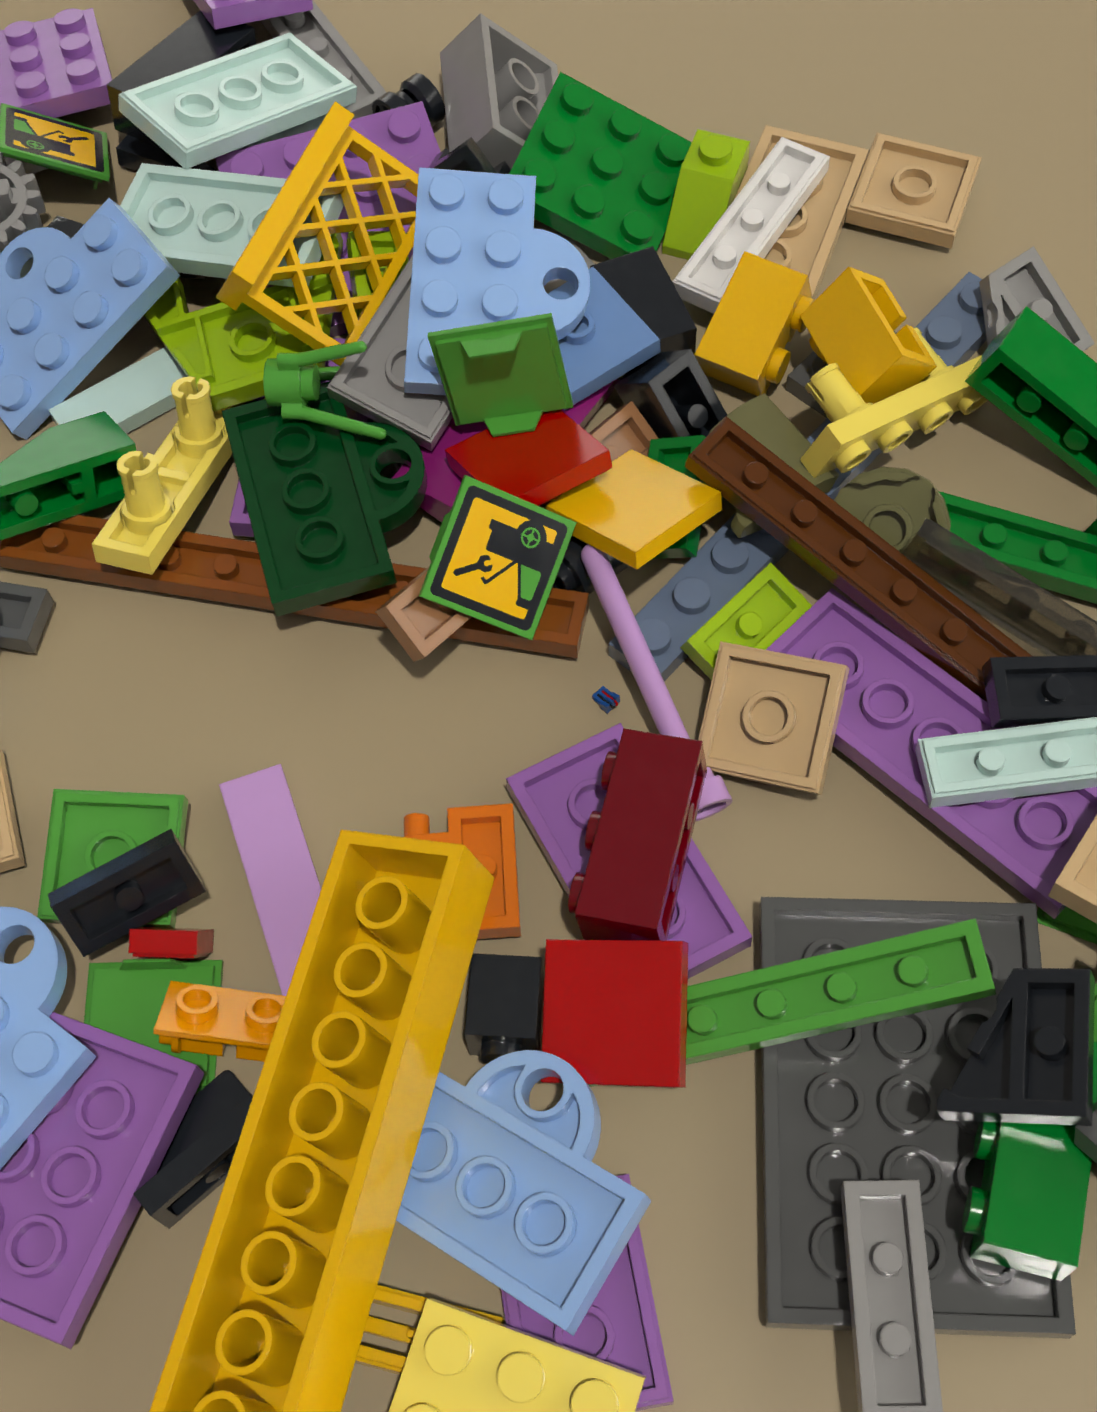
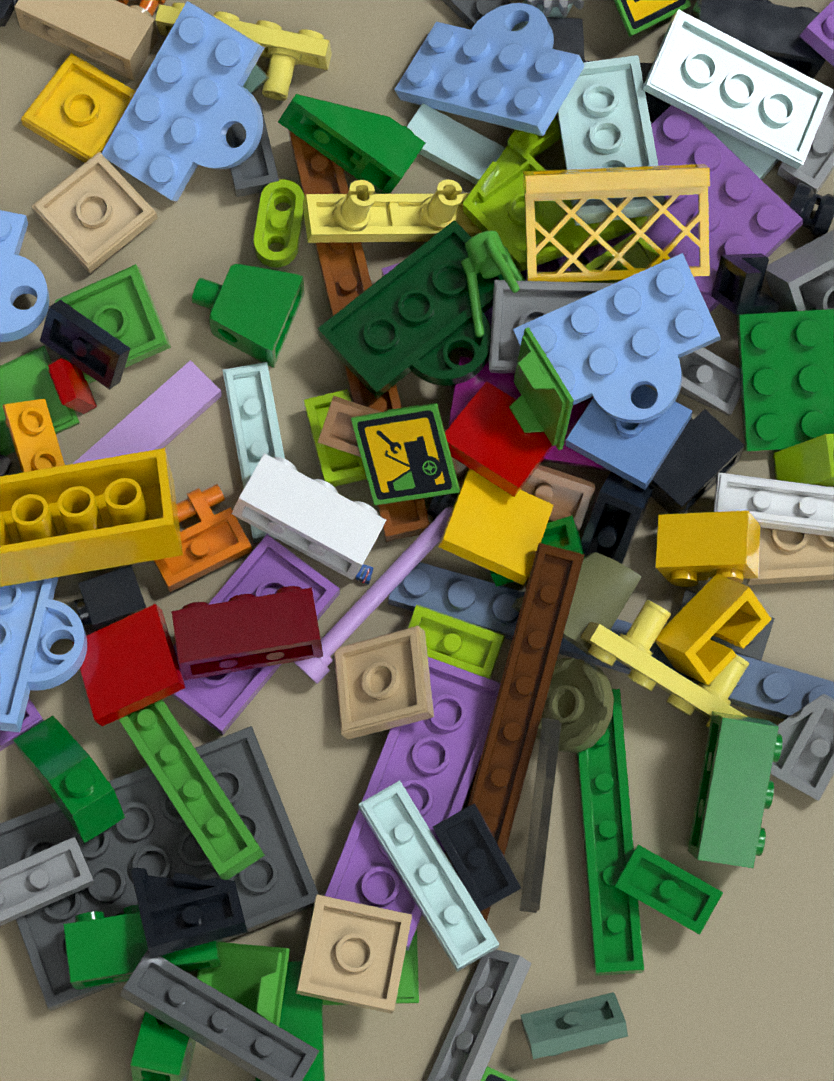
camera: 60 degrees right, 10 degrees up
(105, 616) = (277, 225): none -> lime plate
(195, 684) = (252, 308): none -> green torso
(384, 754) = (253, 420): none -> light aqua tile
(448, 669) = (336, 465): none -> lime plate
(509, 716) = (309, 515): none -> white brick
(742, 1157) = (71, 778): none -> green slope

